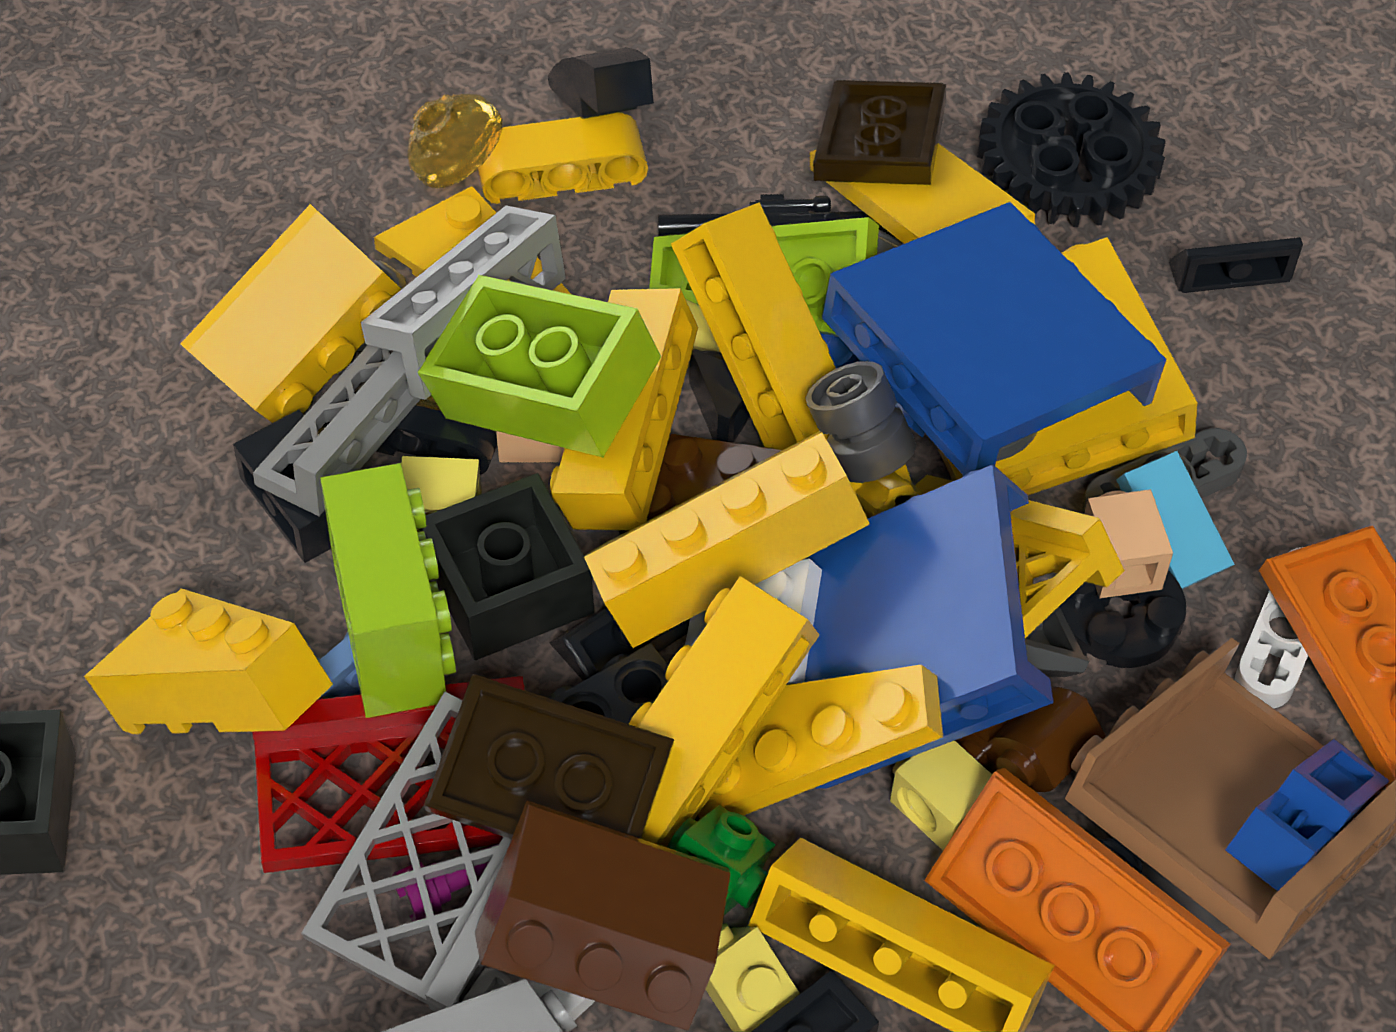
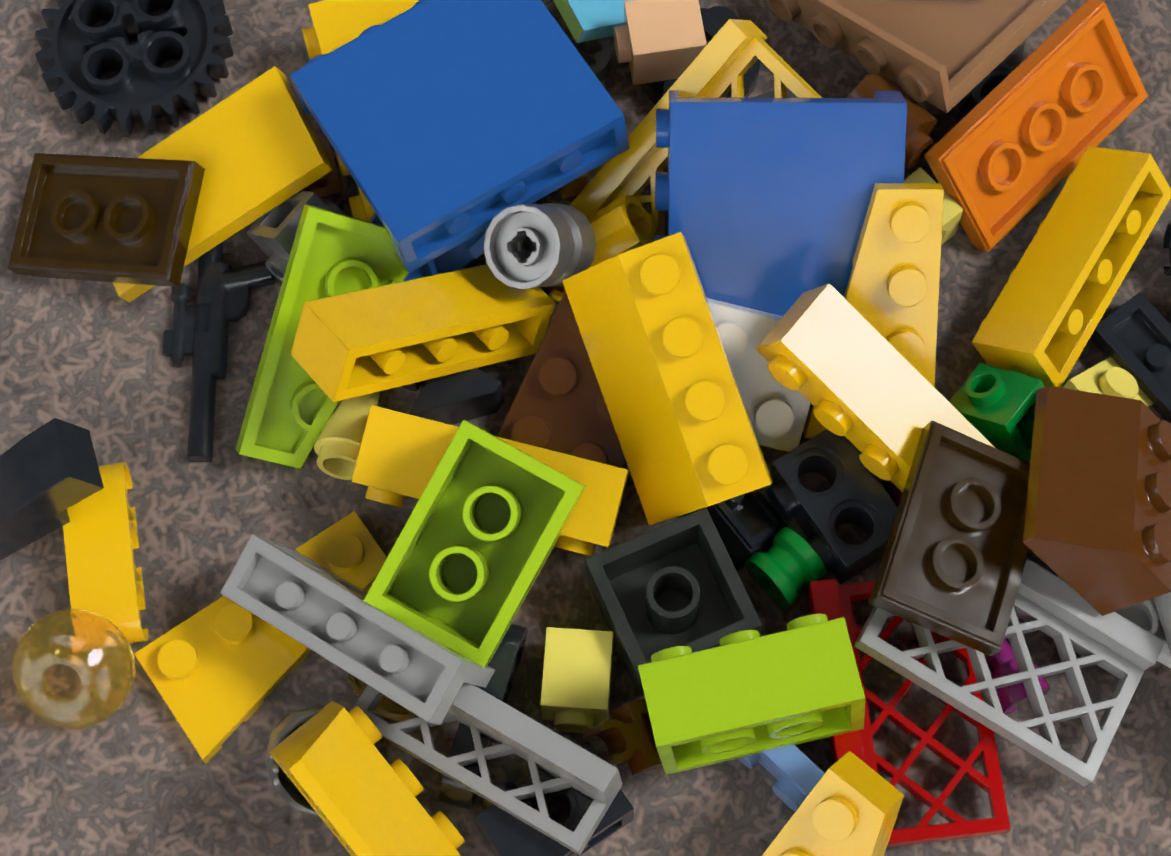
camera: 85 degrees left, 15 degrees up
(545, 665) = (785, 568): none -> green wheel

